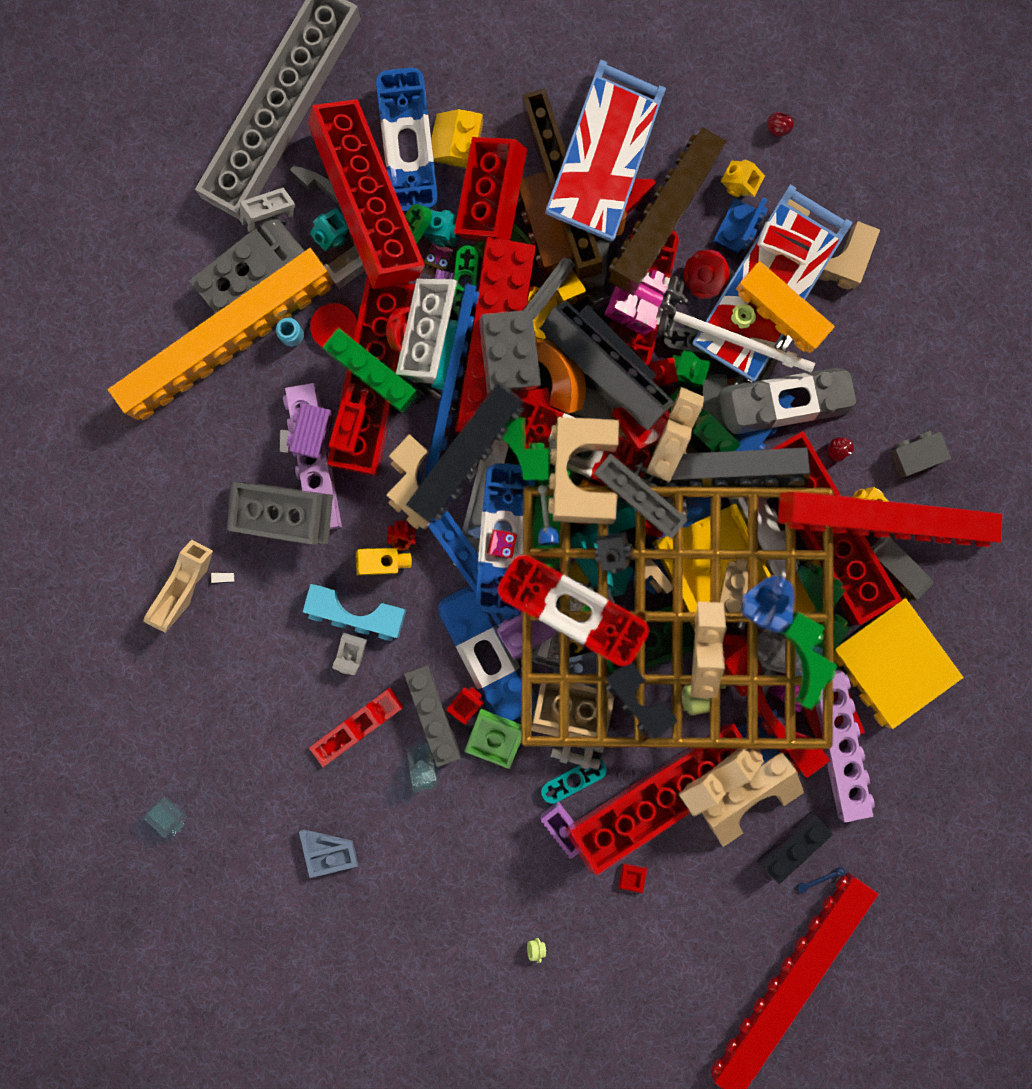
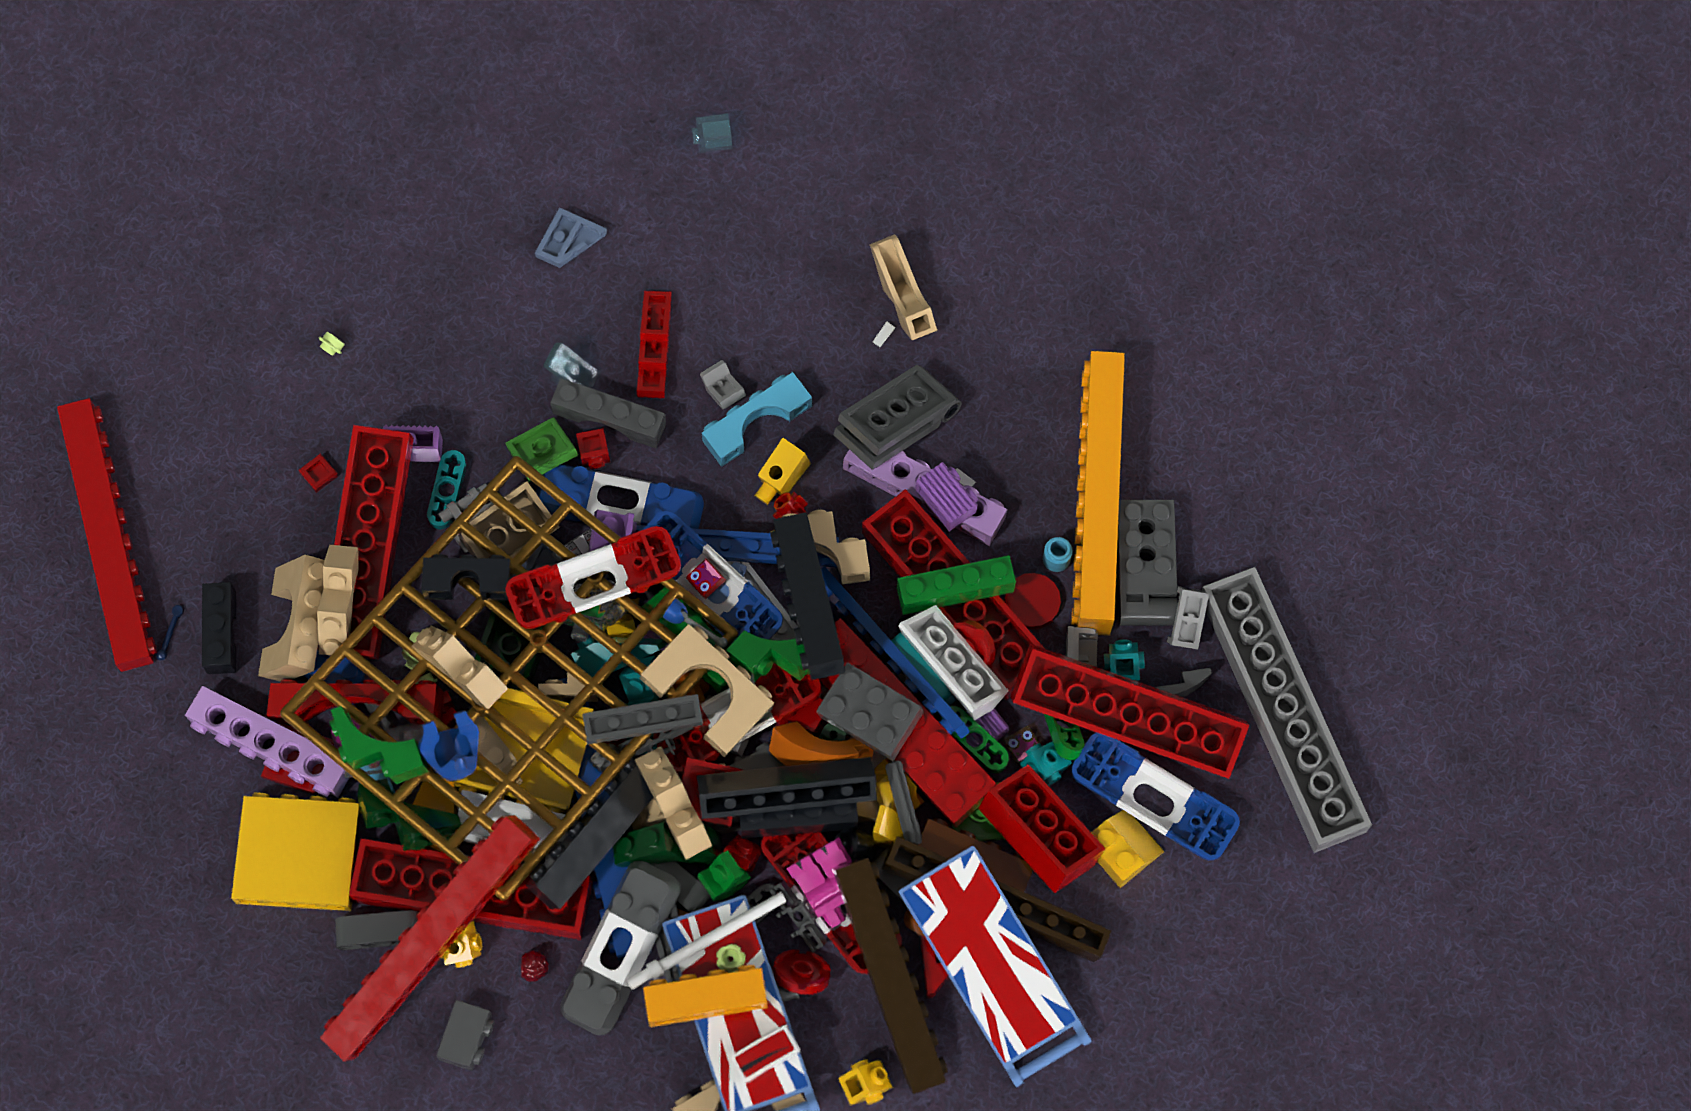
camera: 135 degrees right, 15 degrees down
(349, 421) = (926, 533): red hinge -> none
(613, 552) = (614, 653): black brick -> none
(739, 224) = (826, 1047): blue bracket -> none

